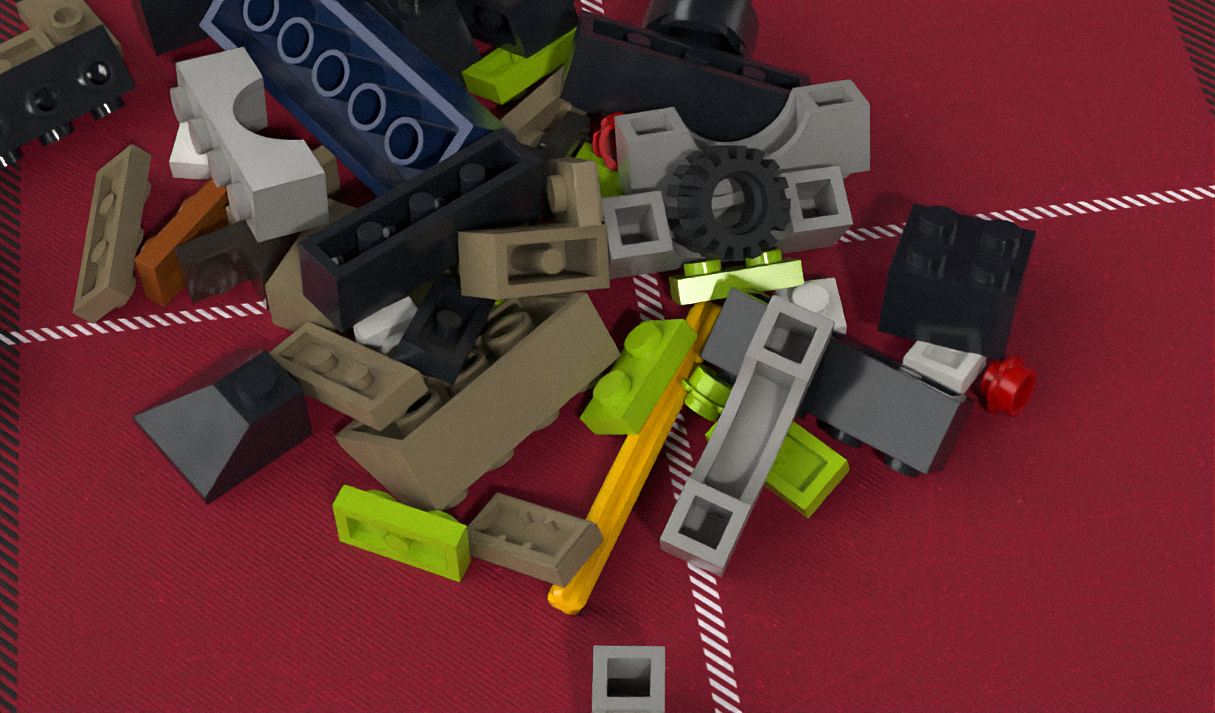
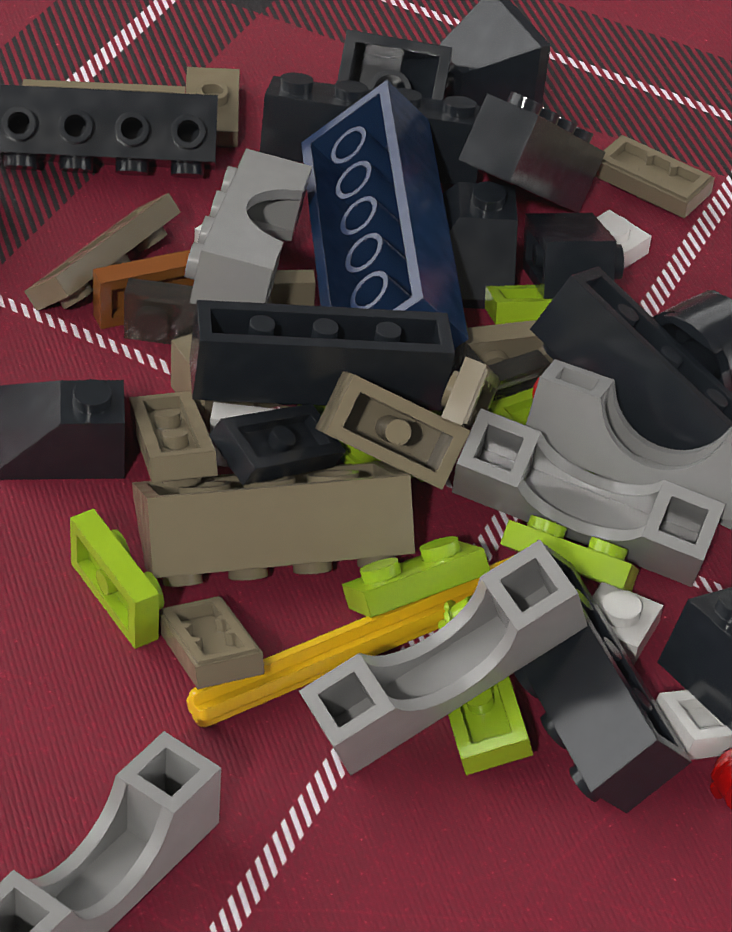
camera: 30 degrees right, 10 degrees down
(760, 202) = (631, 479): black tyre -> none

